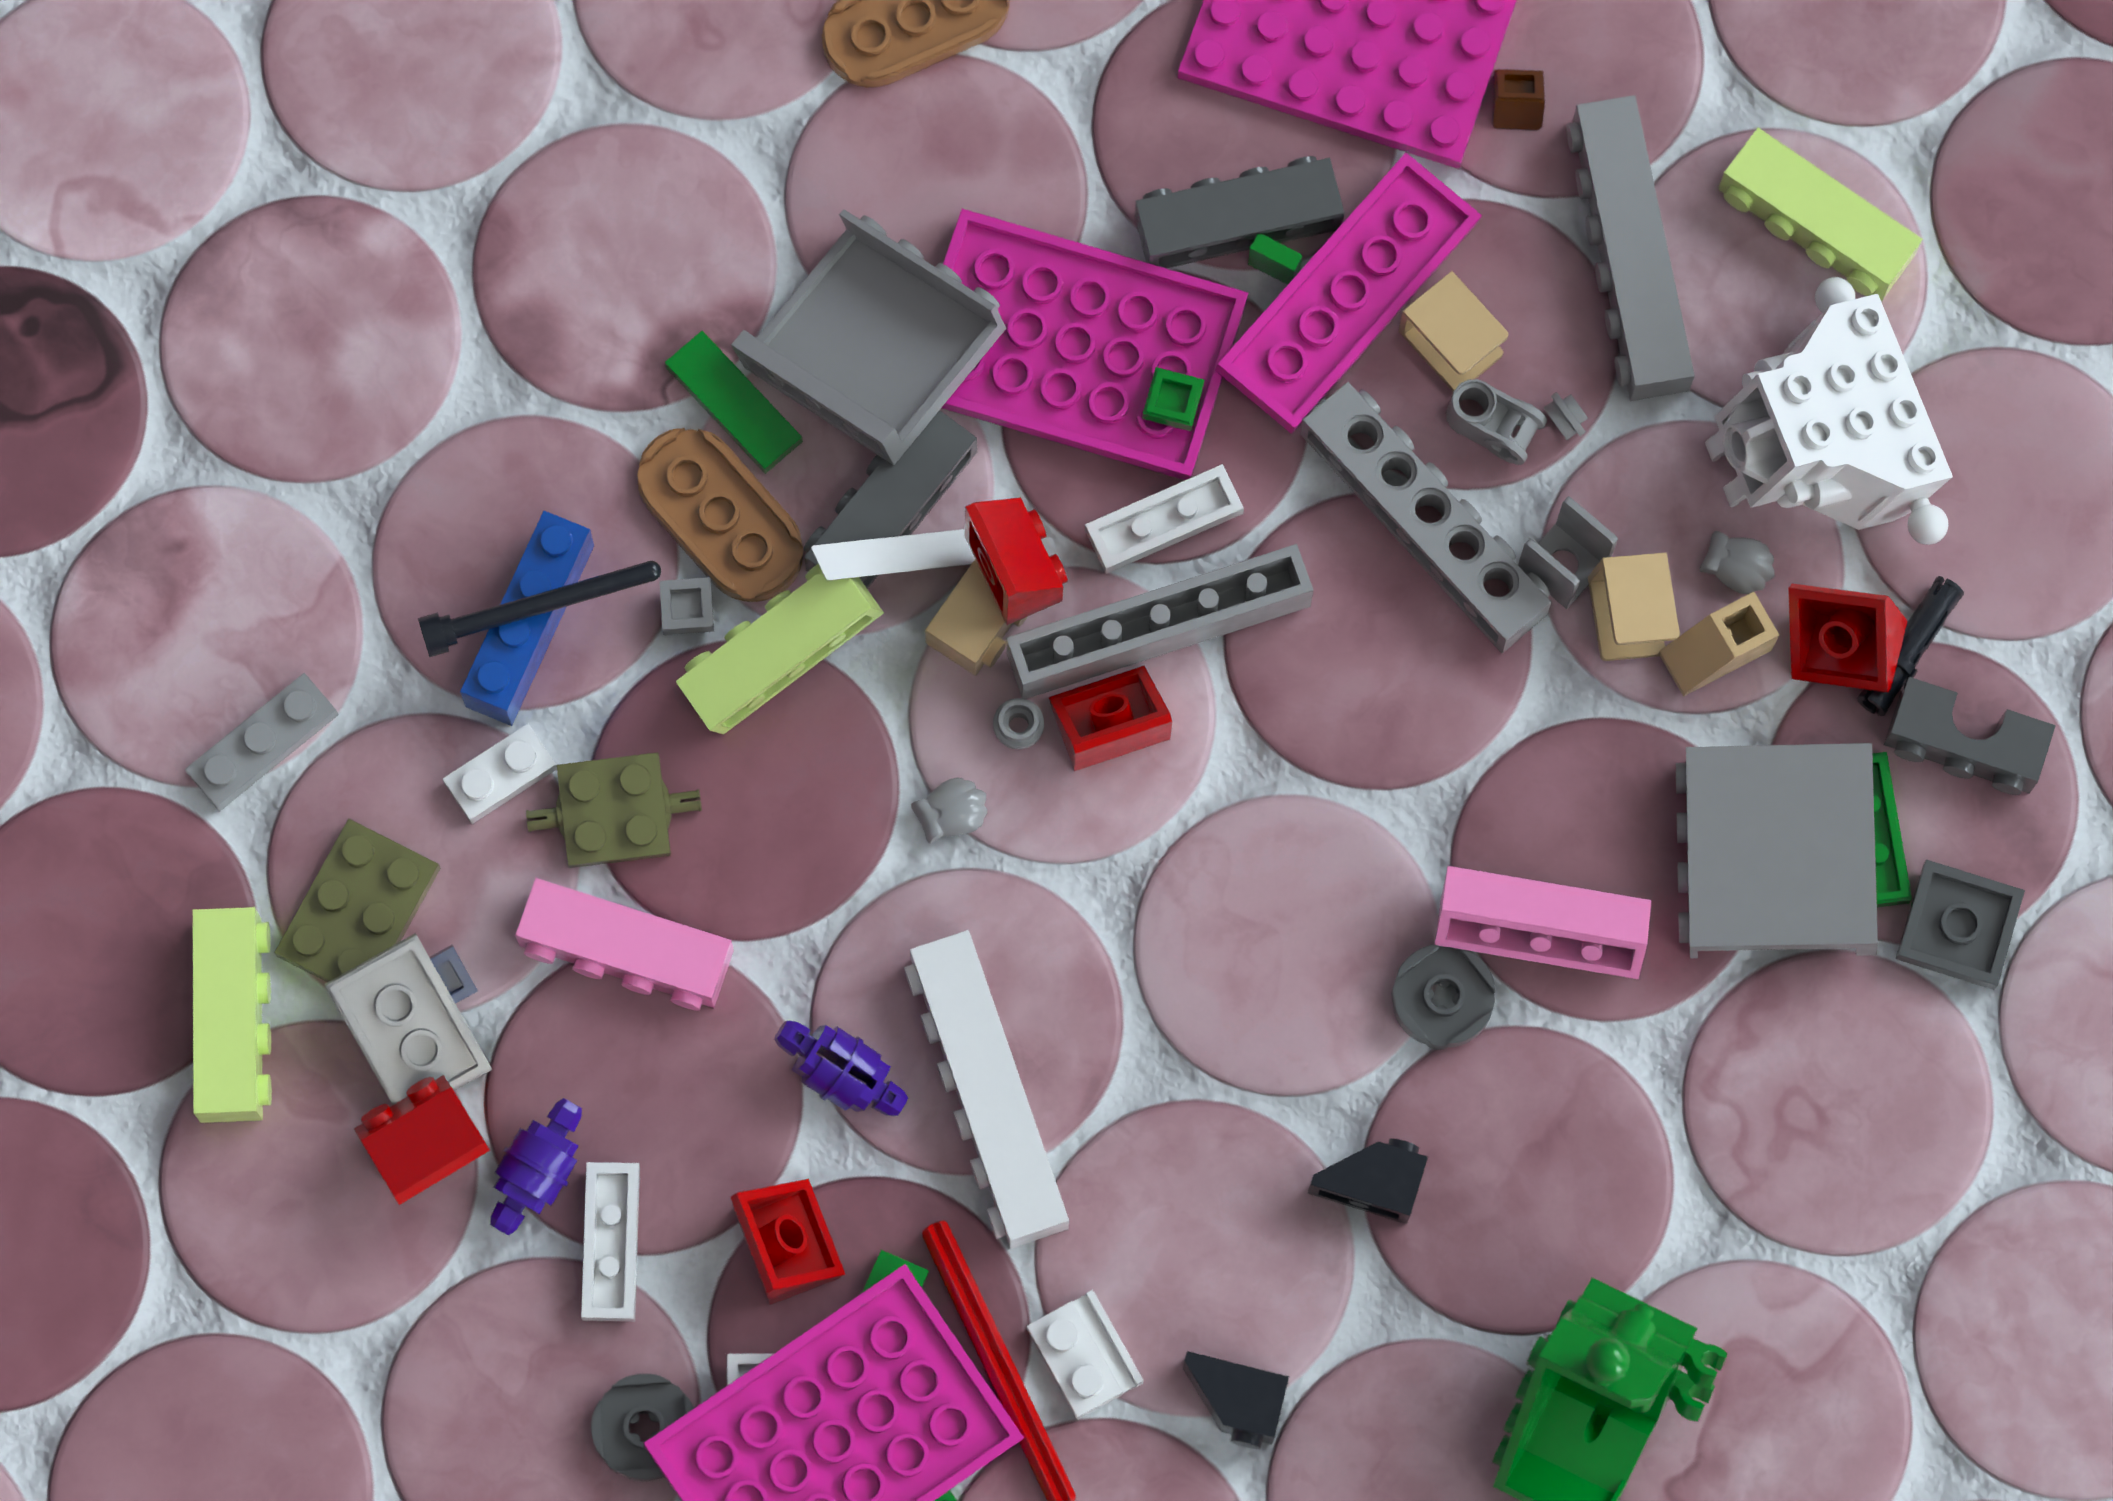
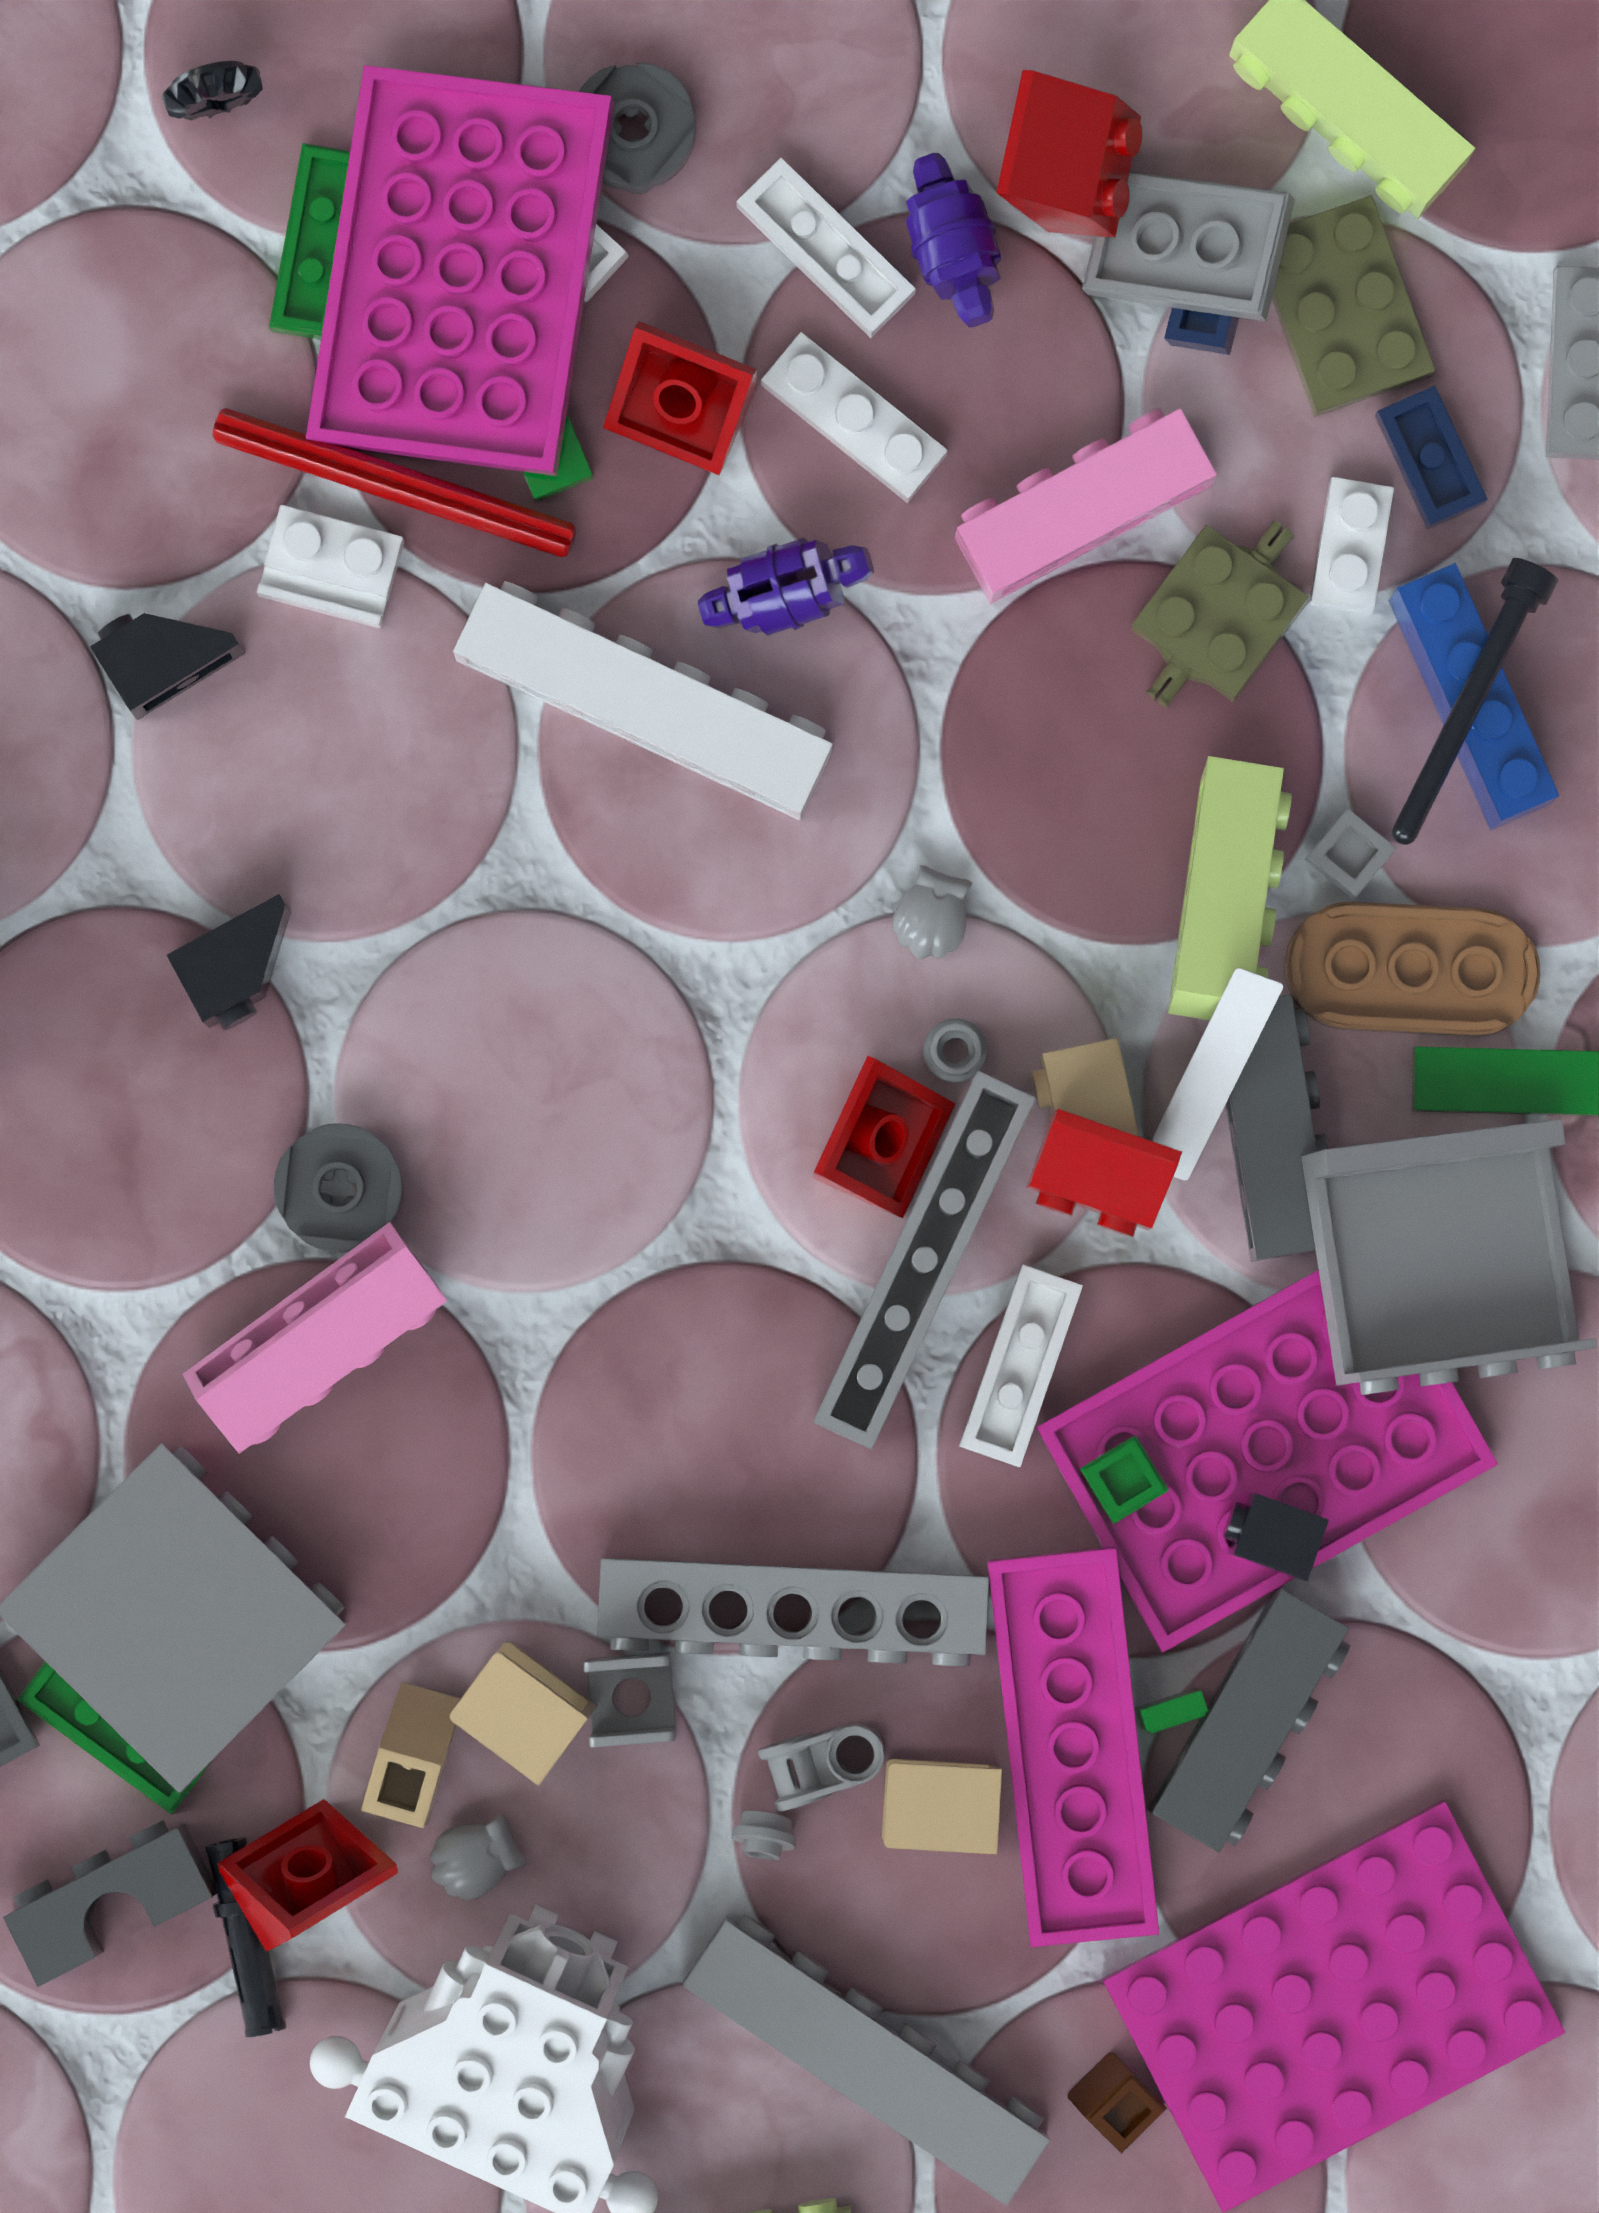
camera: 130 degrees right, 10 degrees up
(403, 774) = (1431, 457): none -> dark blue plate
(697, 1131) = (854, 417): none -> white plate
(1123, 284) = (1275, 1535): none -> black brick

